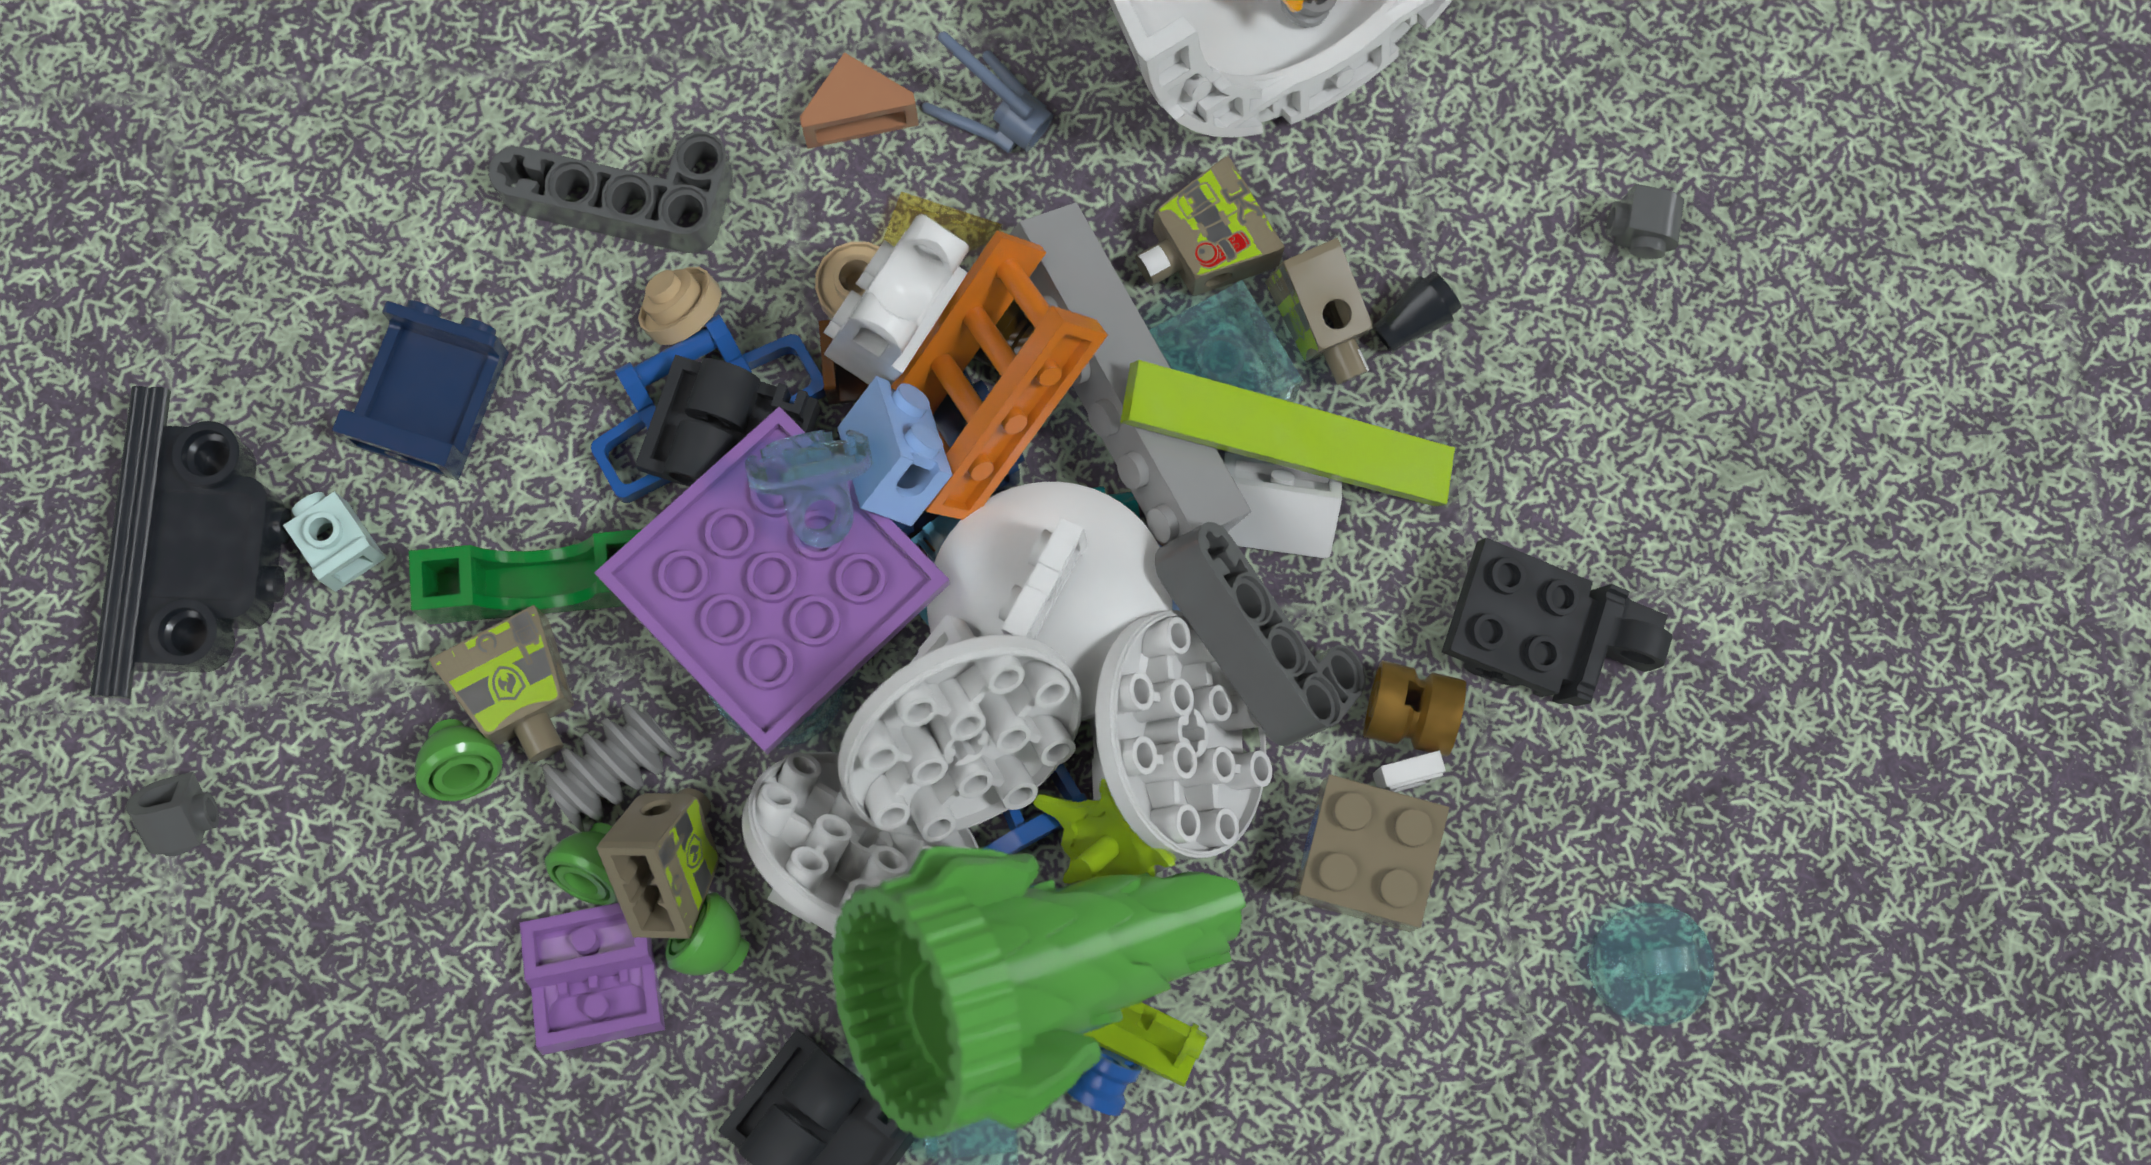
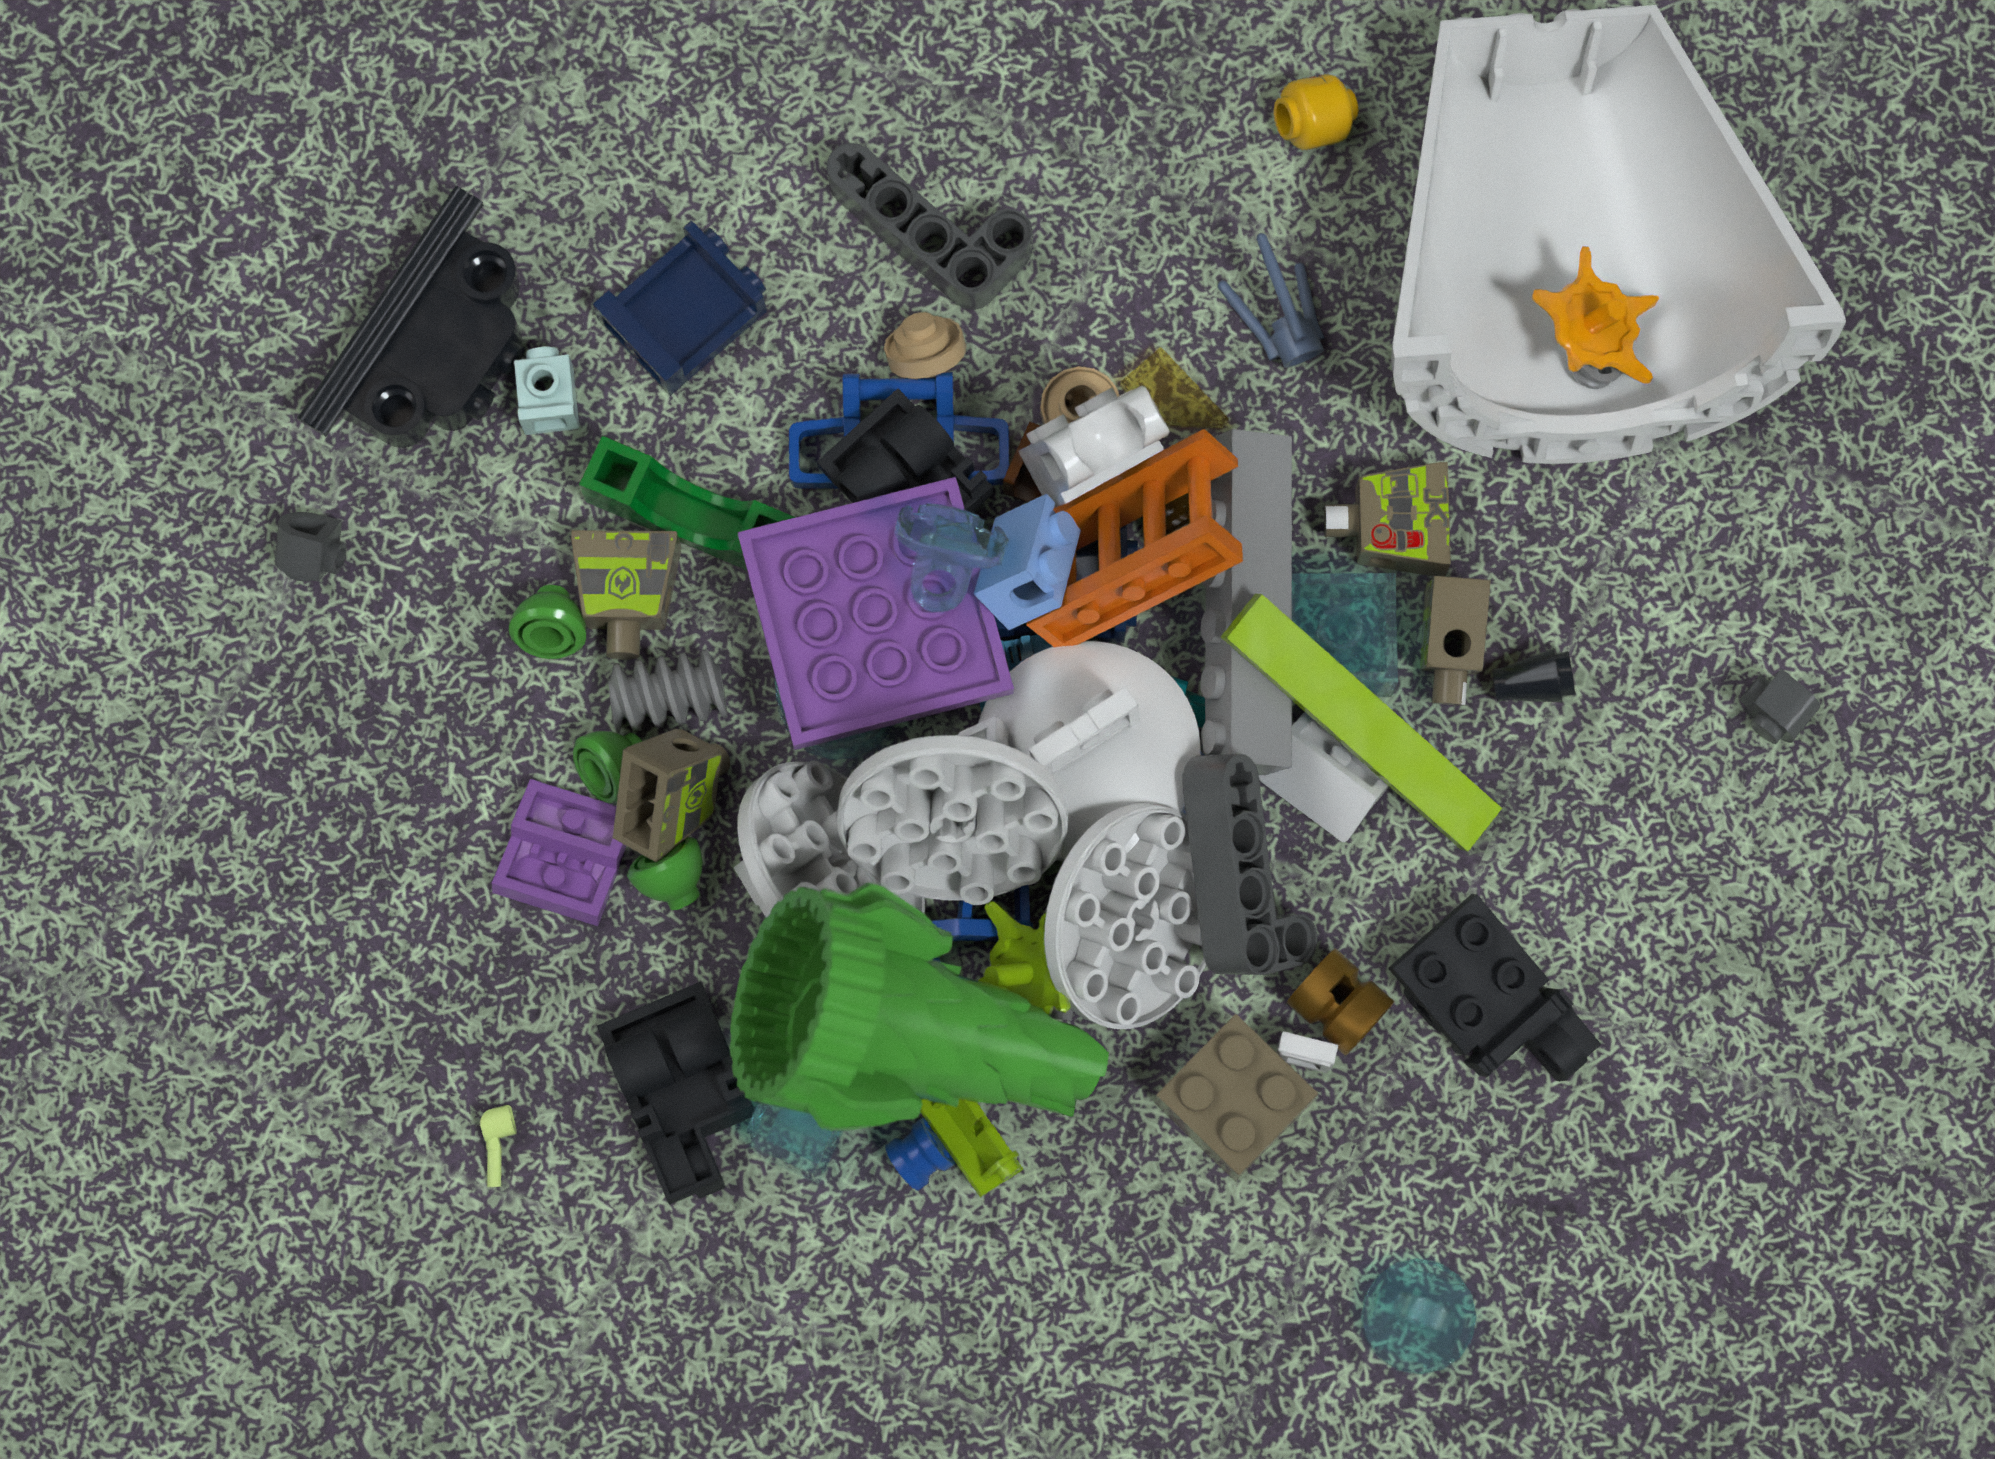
camera: 35 degrees right, 0 degrees up
(856, 105) = (1161, 253): nougat slope -> none

